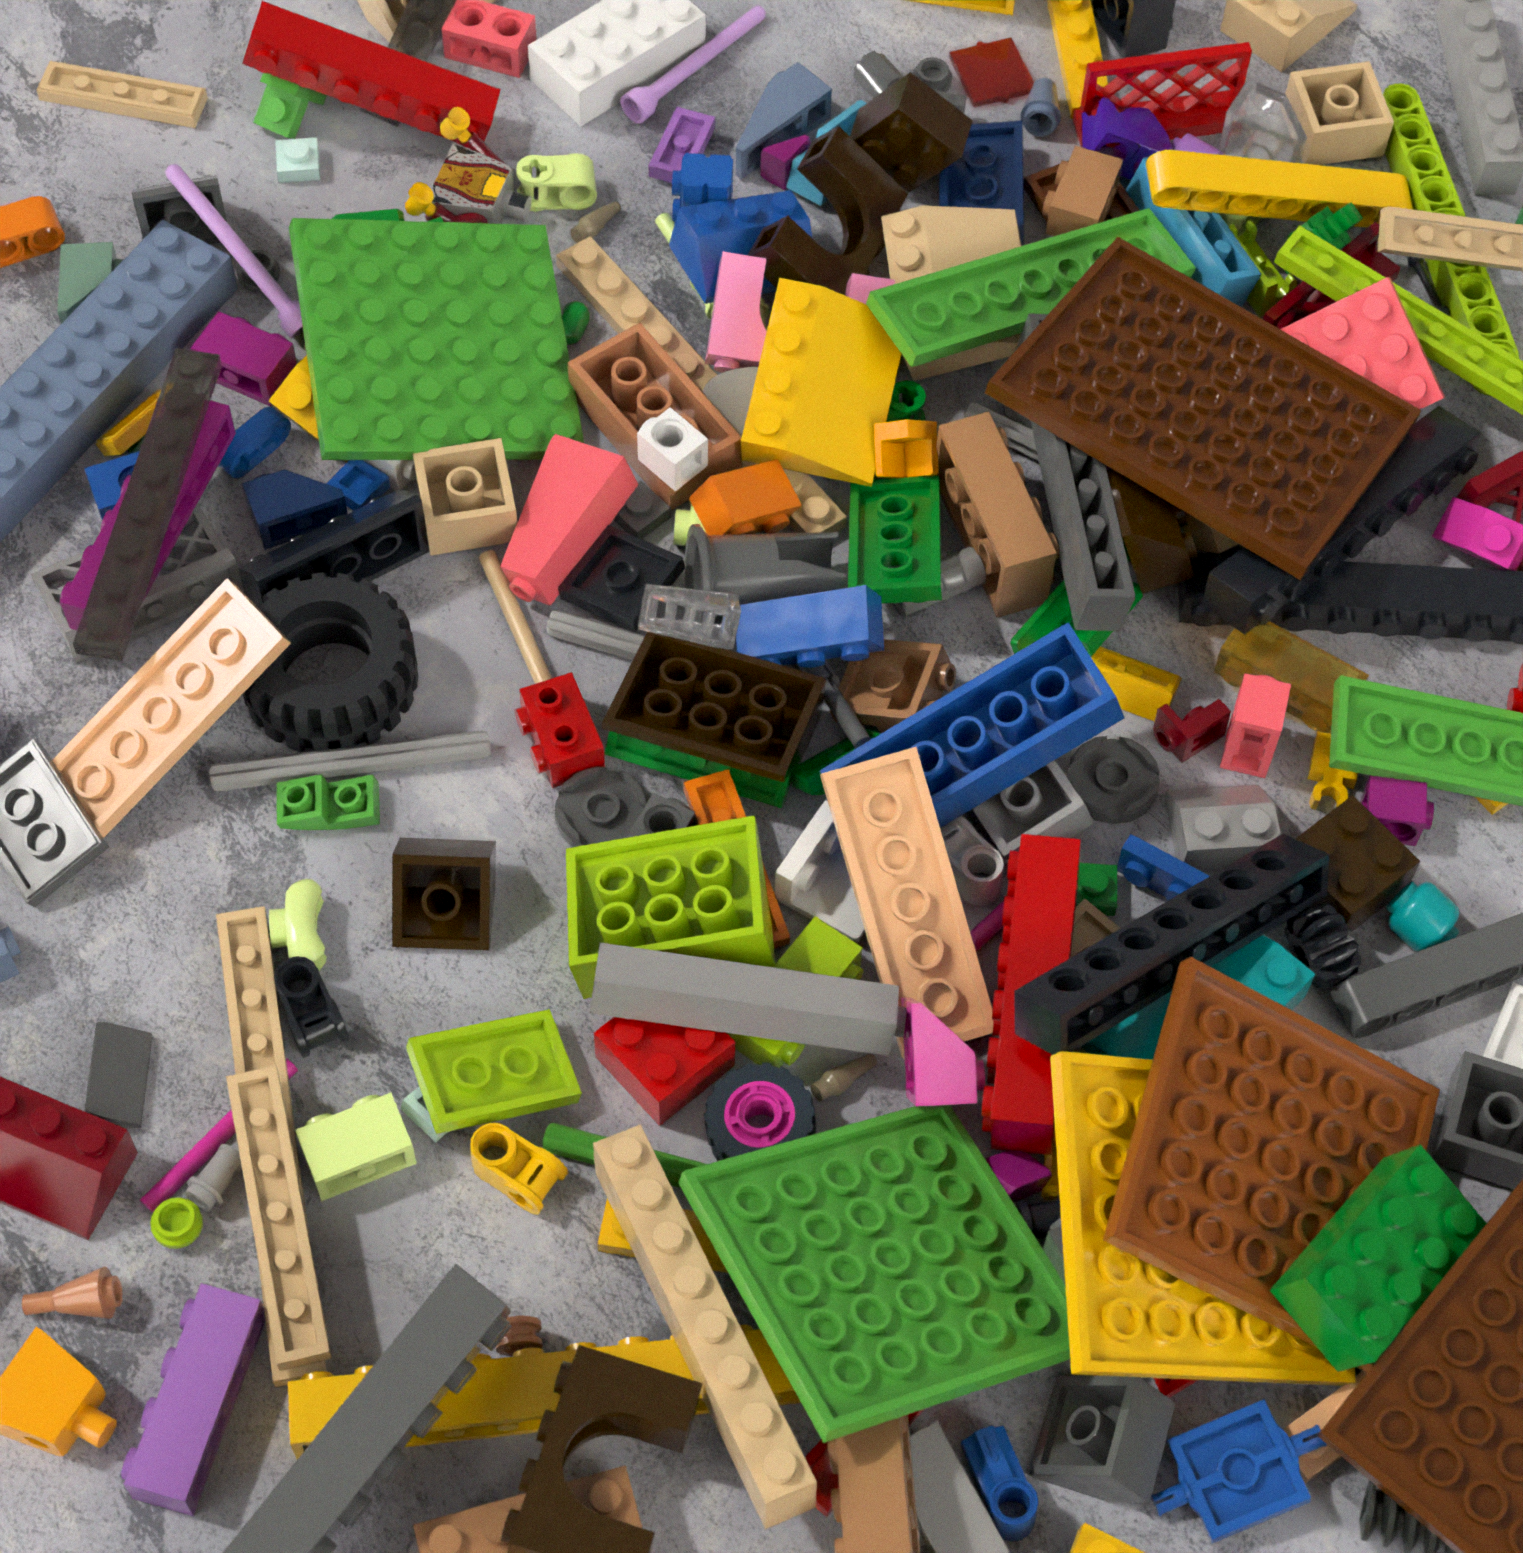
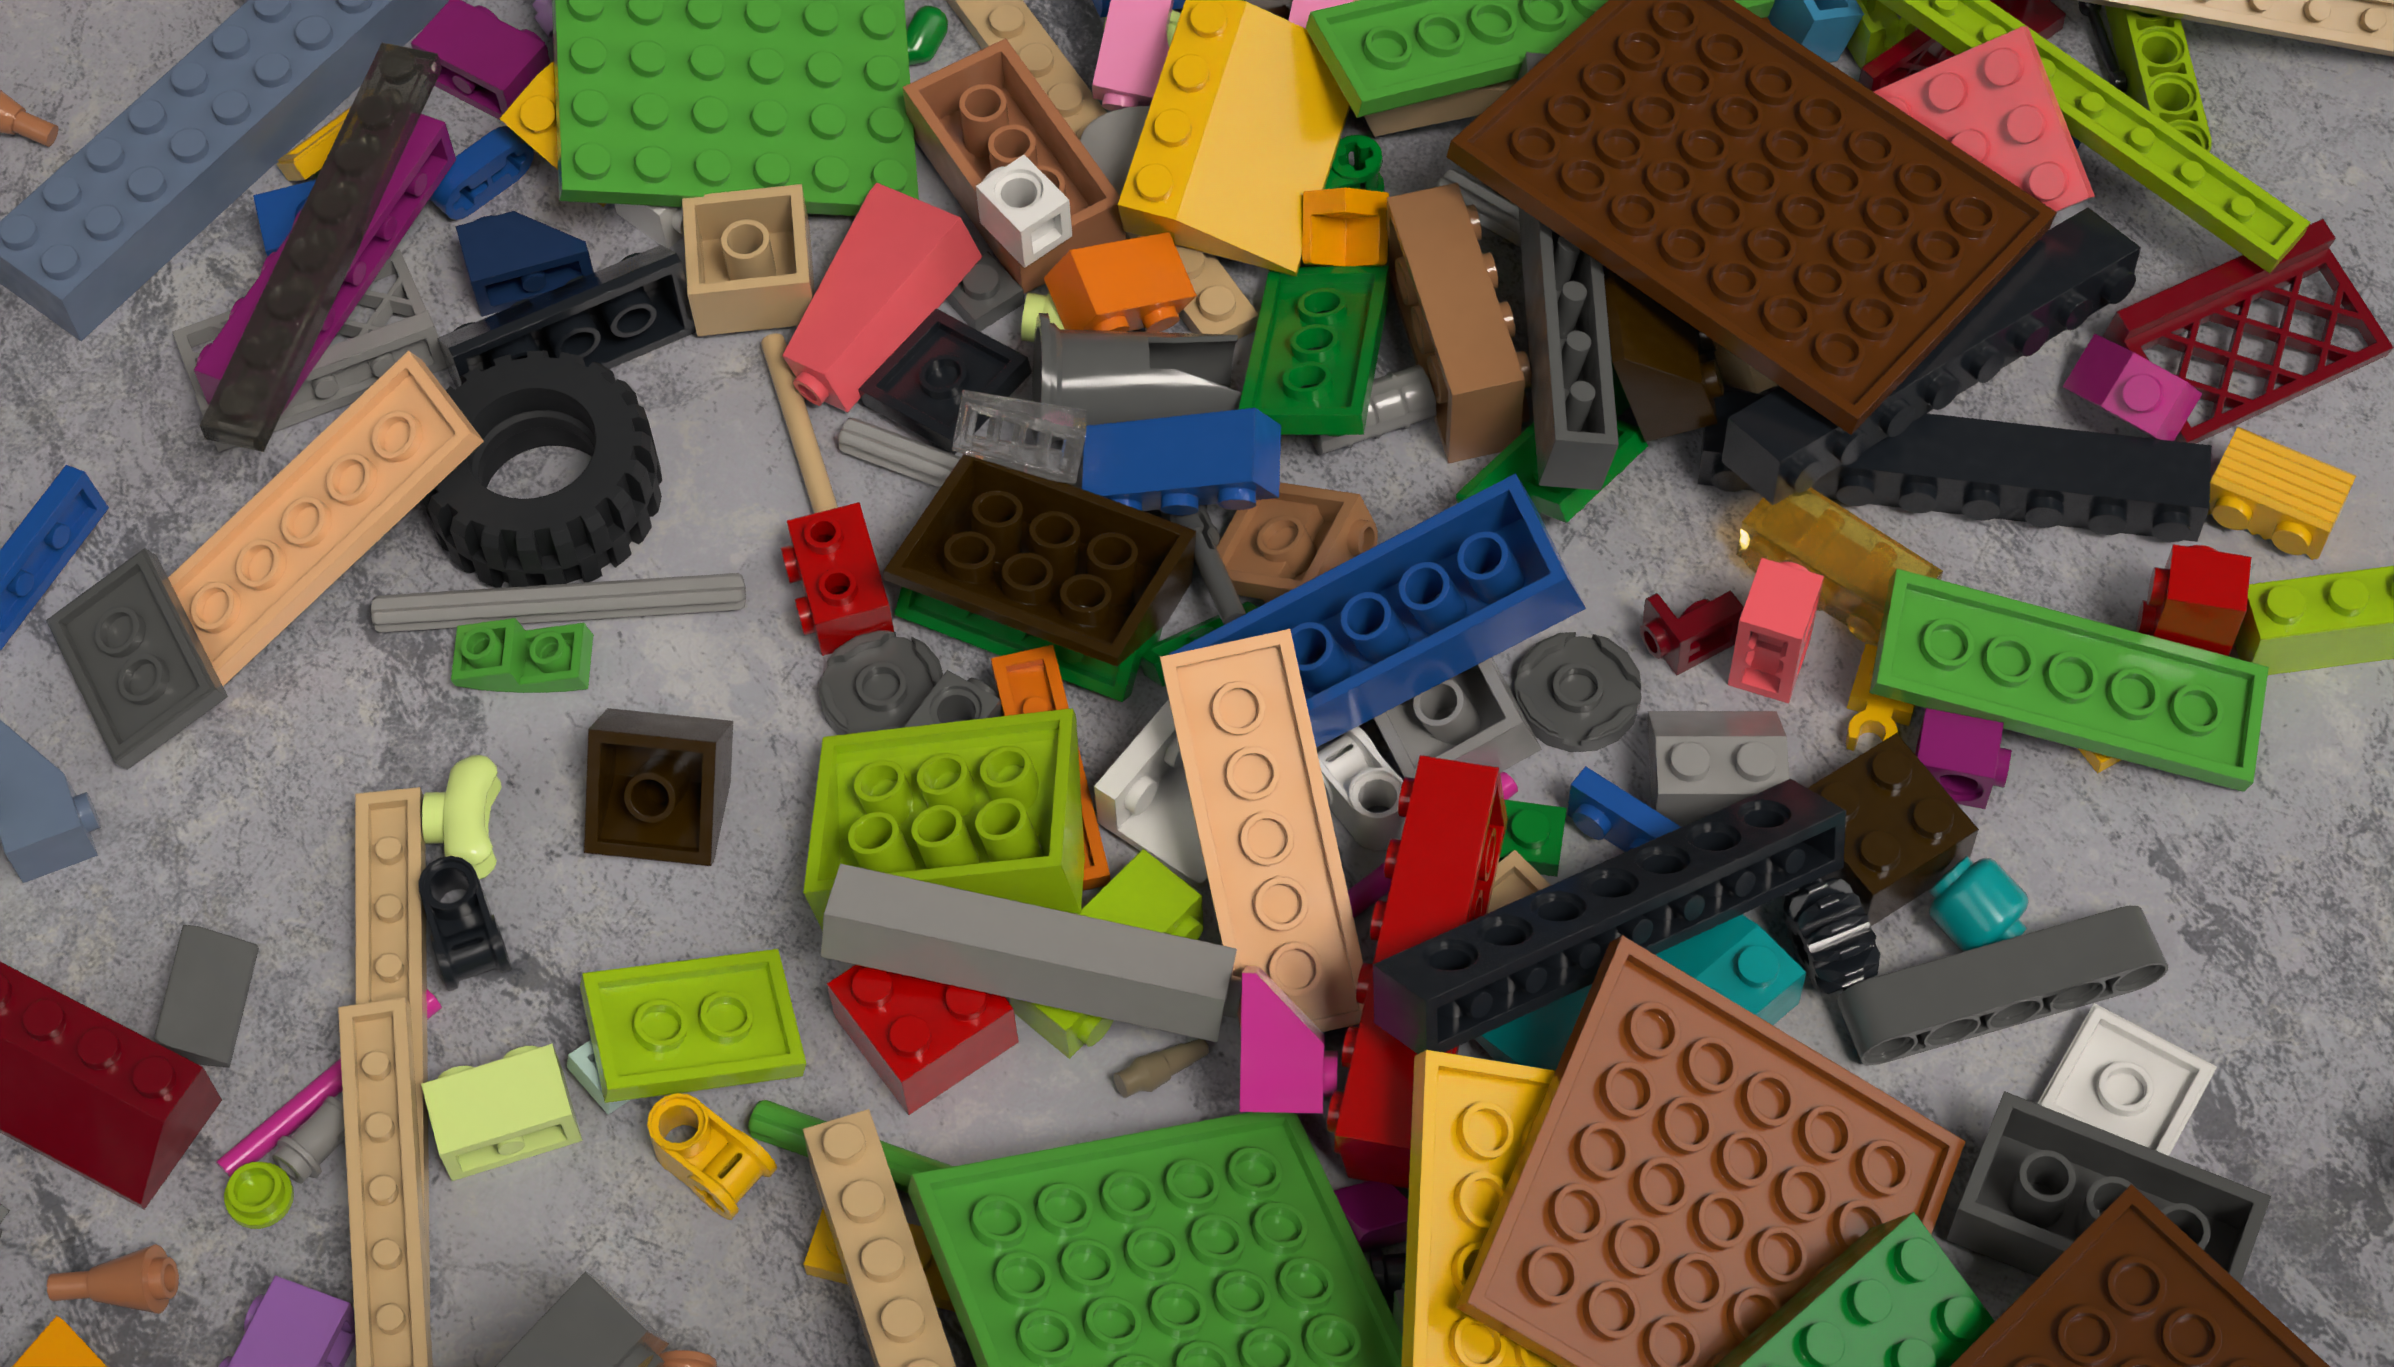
camera: 10 degrees right, 0 degrees up
(360, 483) = (613, 234): blue plate -> none
(751, 1093) = (1031, 1080): wheel -> none
(1136, 684) = (1618, 562): yellow slope -> none

